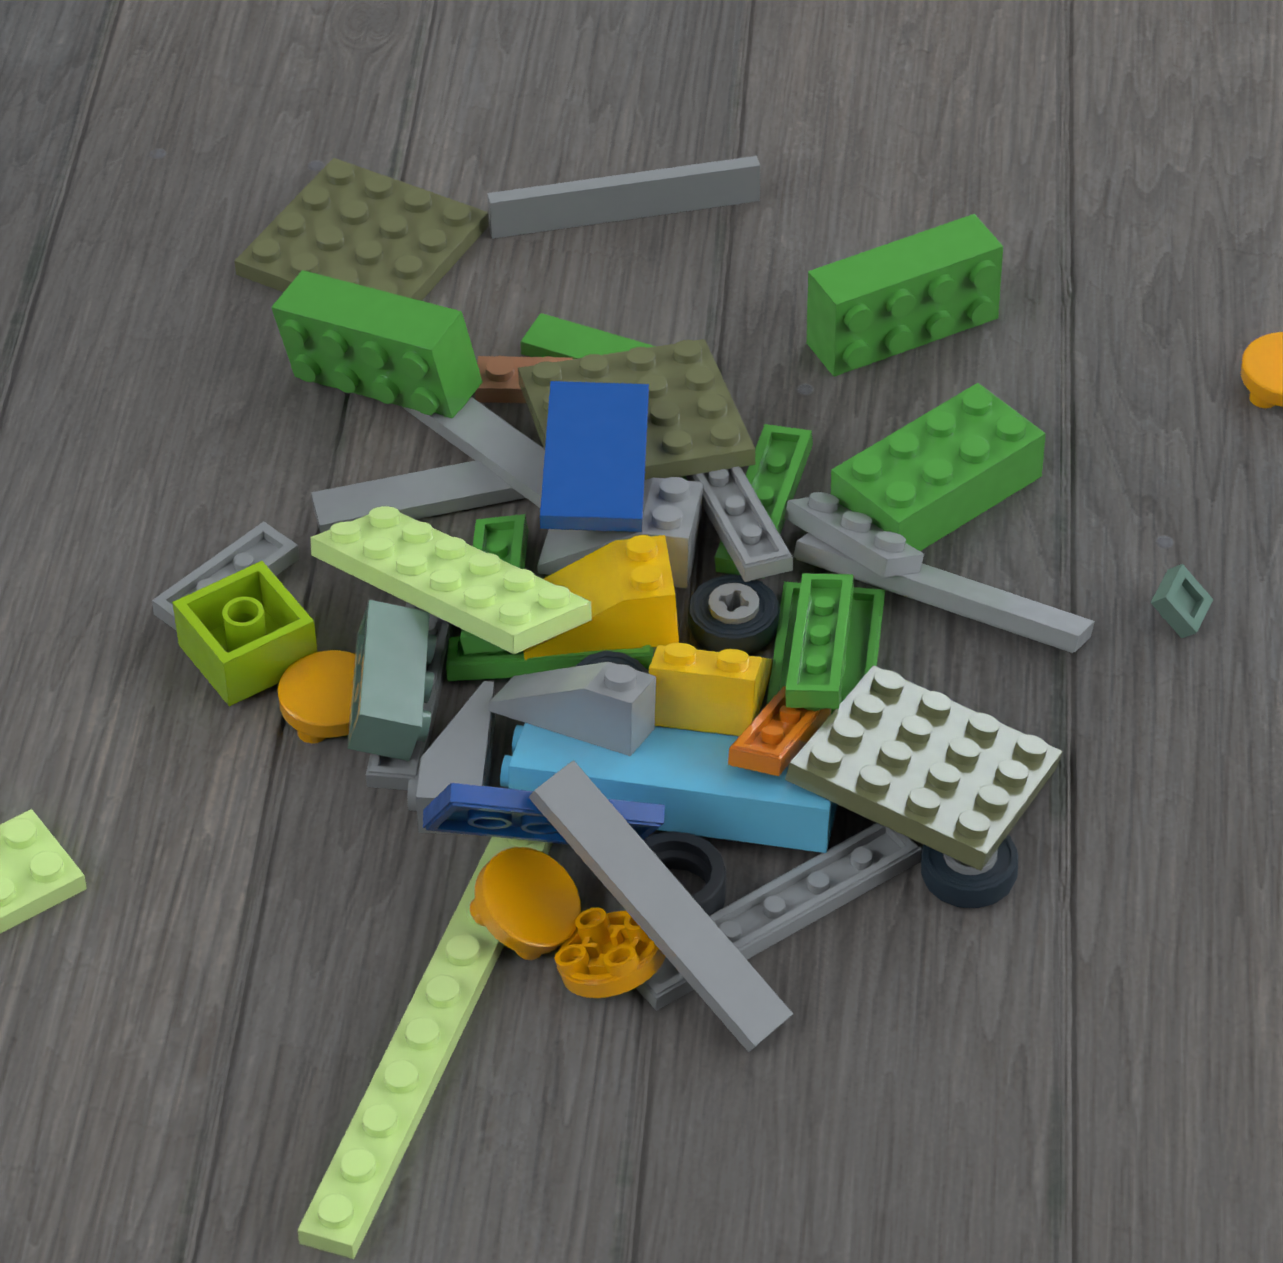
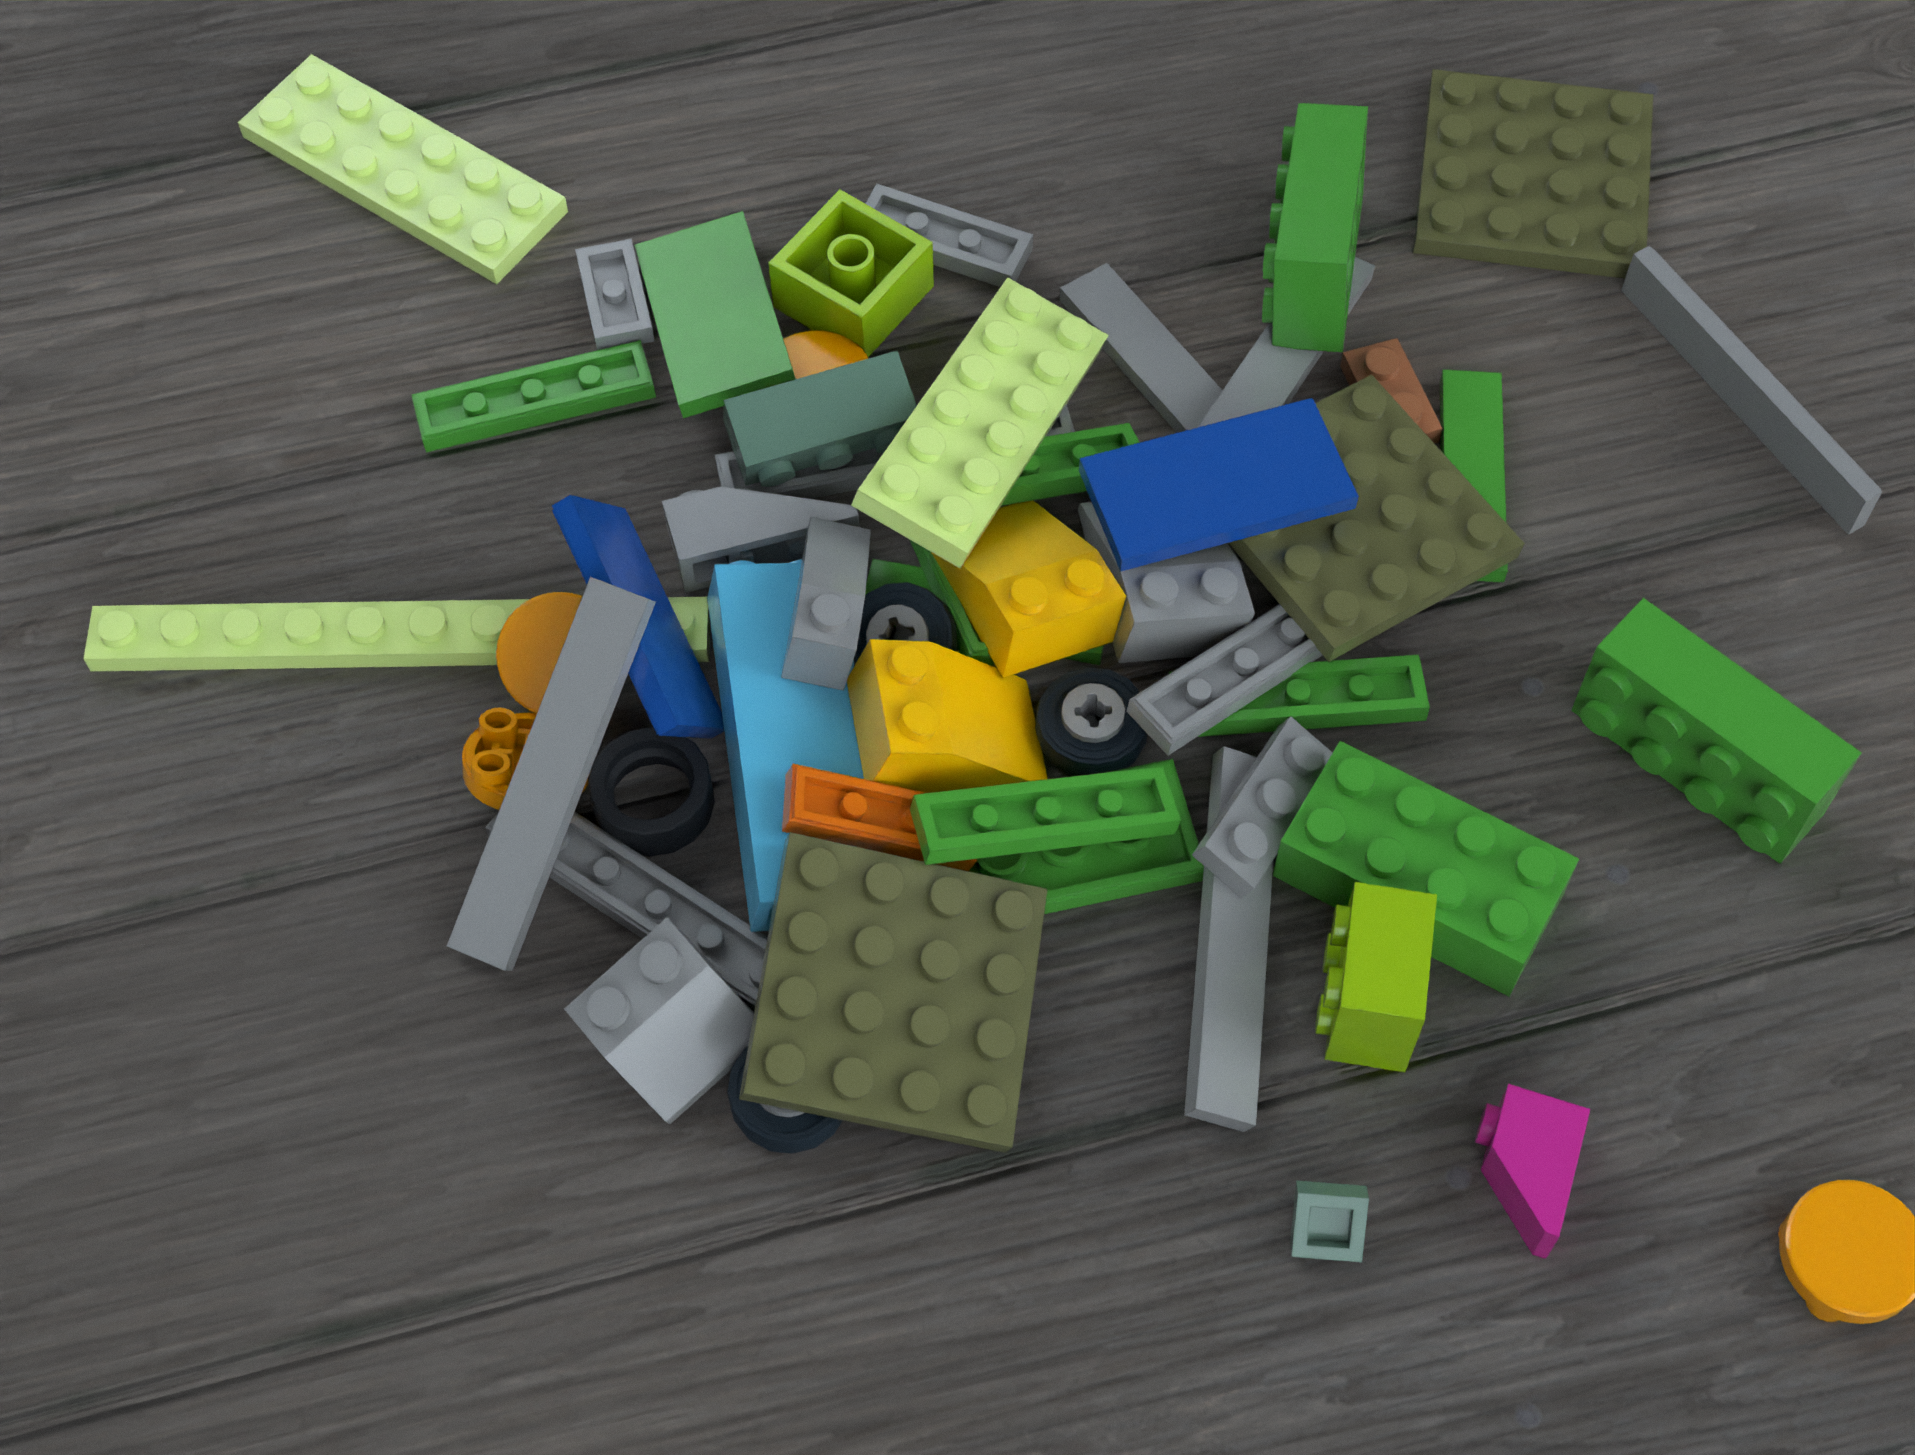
camera: 70 degrees right, 15 degrees up
(161, 799) = (614, 294): none -> light grey plate
(226, 734) = (713, 313): none -> bright green tile
(231, 885) = (533, 396): none -> bright green tile
(885, 911) = (665, 1020): none -> light grey slope
(1022, 509) = (1377, 976): none -> lime brick
(1179, 490) = (1532, 1160): none -> dark pink slope

